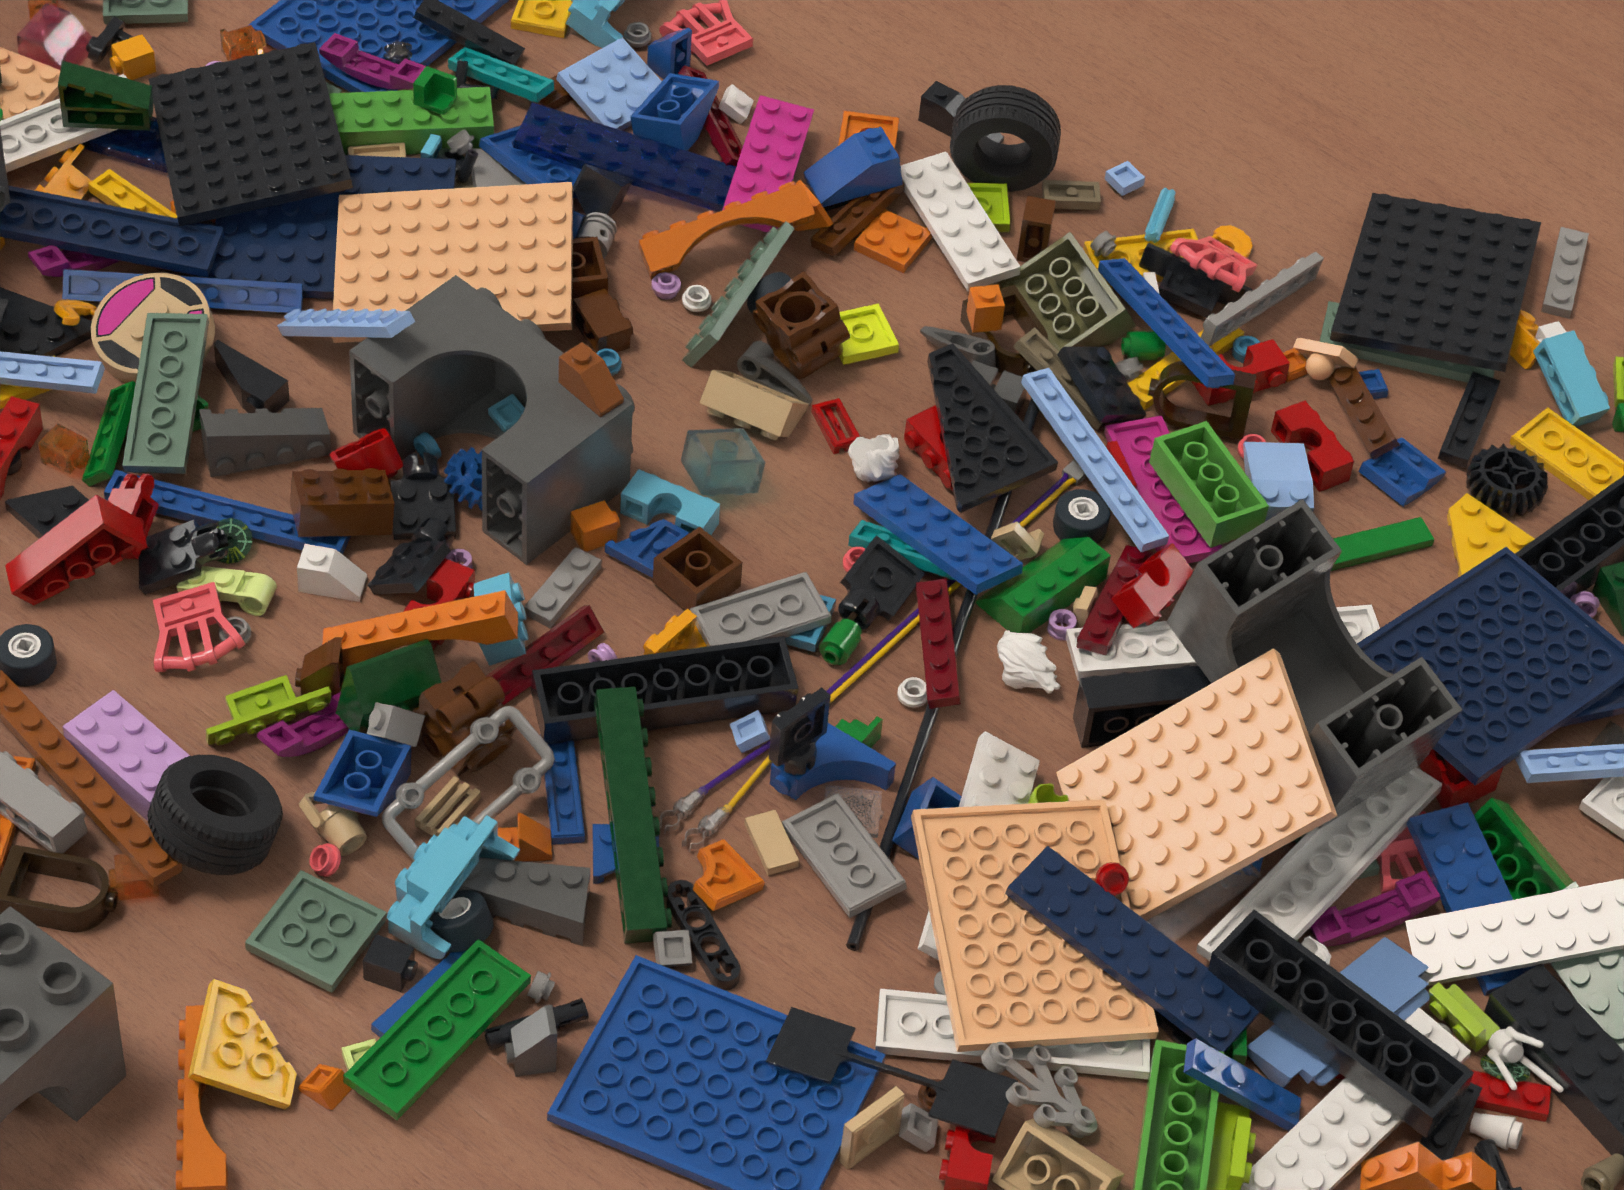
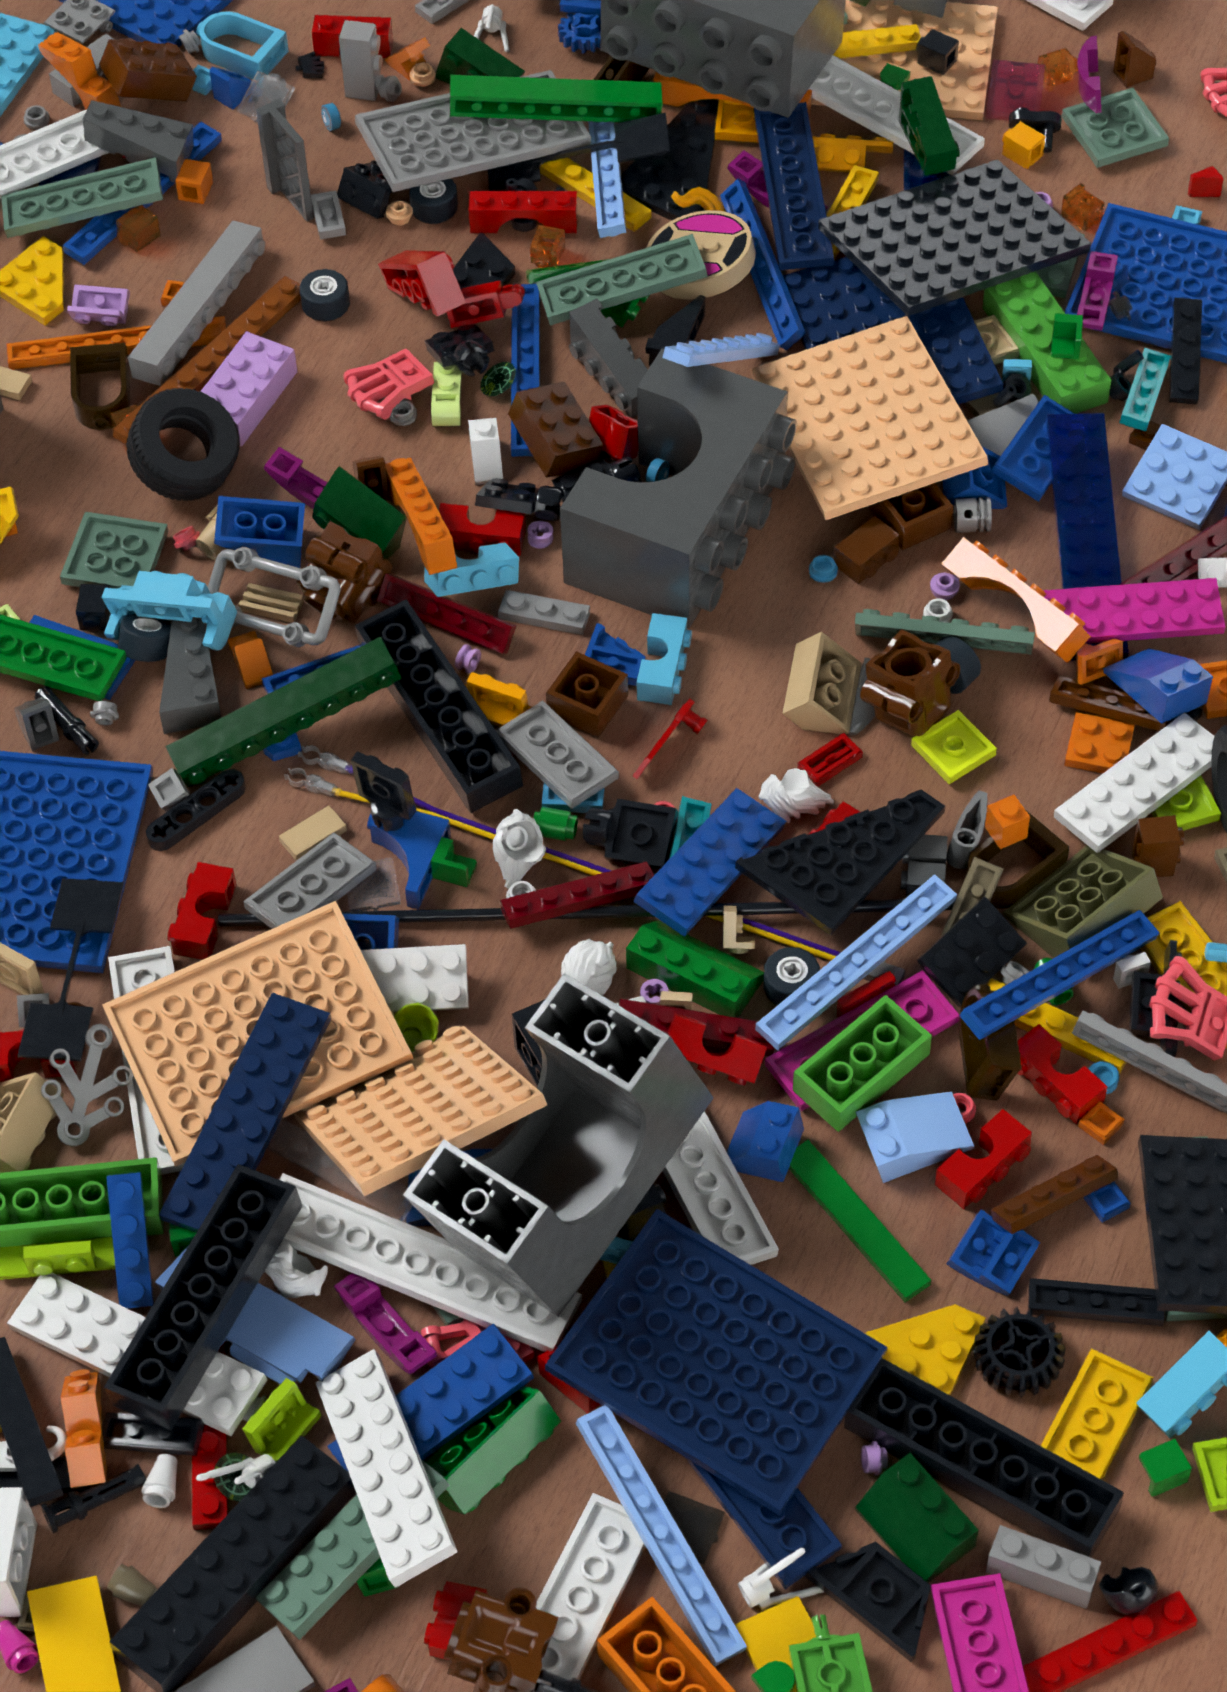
camera: 80 degrees right, 5 degrees up
(264, 705) = (323, 447): lime bracket -> none
(395, 724) = (313, 523): light grey brick -> none
(460, 142) = (1033, 383): light grey plate -> none
(589, 379) = (689, 510): dark orange slope -> none
(594, 526) = (616, 611): orange brick -> none
(600, 190) = (1024, 502): black slope -> none
(675, 110) = (1161, 523): blue slope -> none
(722, 461) = (722, 675): clear light blue brick -> none
(725, 876) = (259, 808): orange tile -> none
(750, 731) = (427, 783): light blue plate -> none
(770, 532) = (685, 715): none -> red brick
(863, 968) = (207, 889): none -> red arch
(867, 672) = (517, 846): none -> white hair
(1103, 244) = (1173, 912): light grey plate -> none
(1112, 878) = (312, 1075): red plate -> none
(1323, 357) = (1109, 1140): light nougat tile -> none

